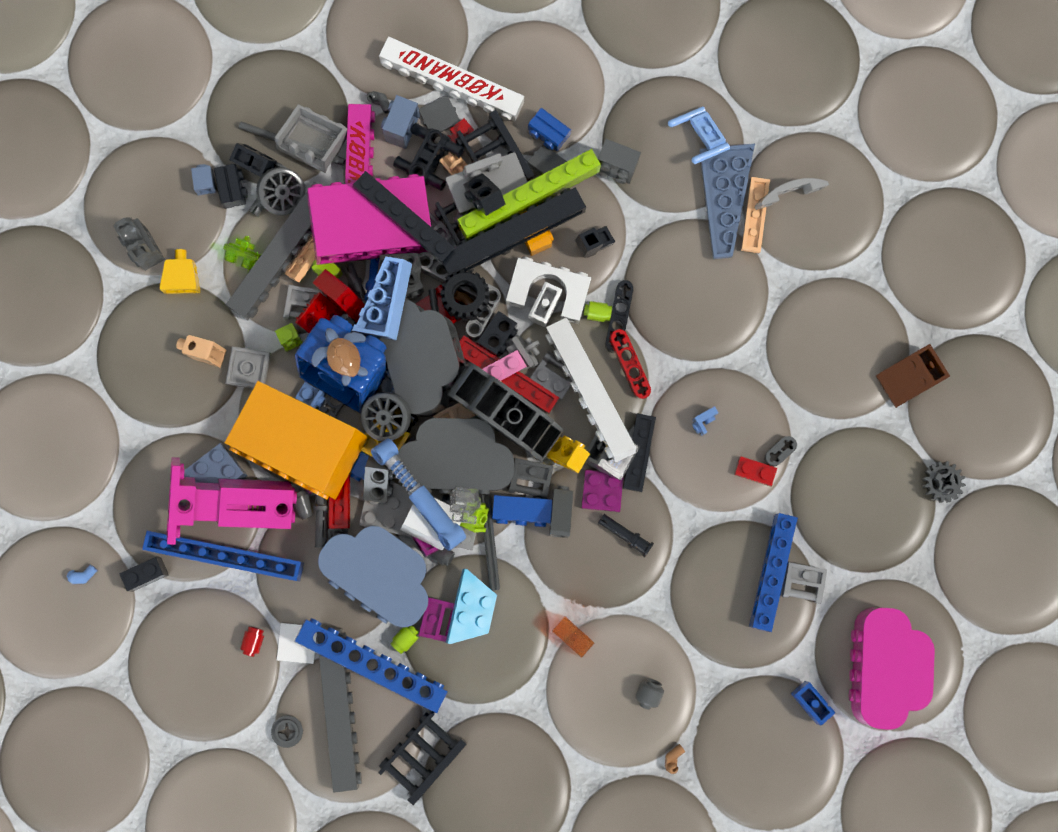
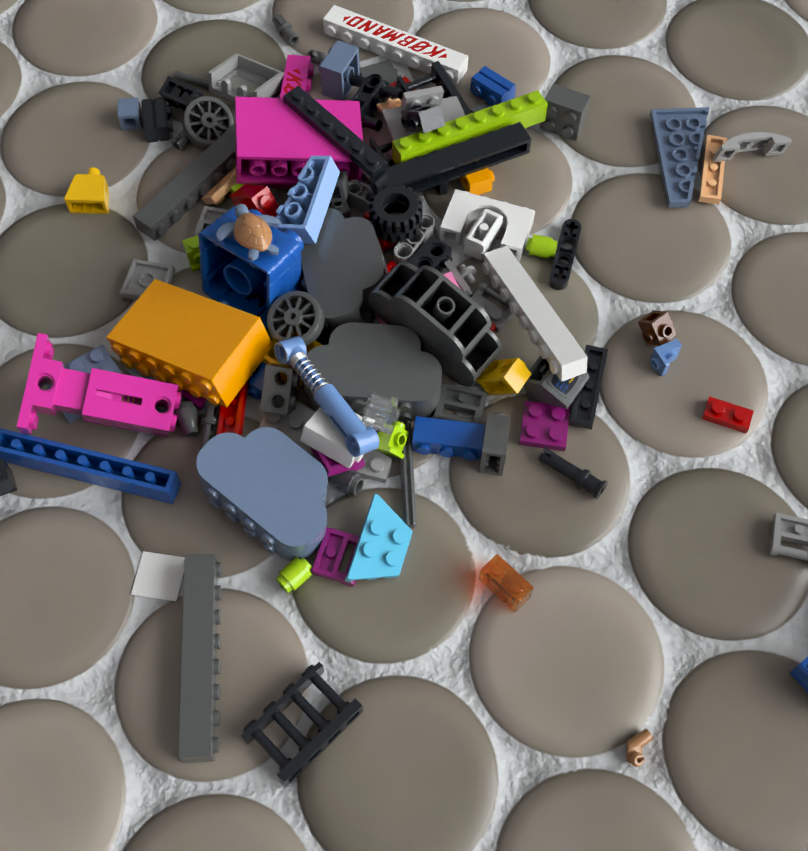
camera: 10 degrees right, 20 degrees down
(138, 242) = (50, 153): dark grey brick -> none
(202, 350) = (100, 258): light nougat torso -> none
(234, 250) = (150, 174): clear neon green hips -> none
(252, 641) = (103, 566): red brick -> none
(280, 738) = (122, 672): dark grey gear -> none
(342, 63) = (285, 29): none -> dark grey axle
(431, 701) = (252, 610): blue brick -> none
(594, 241) = (537, 180): black brick -> none
(627, 365) = (576, 296): red beam -> none
(650, 693) = (604, 659): dark grey head -> none
(698, 394) = (657, 328): none -> reddish brown brick
(706, 131) = (656, 93): light blue plate -> none
(773, 572) = (756, 524): blue brick -> none
(783, 454) = (752, 391): dark grey beam -> none

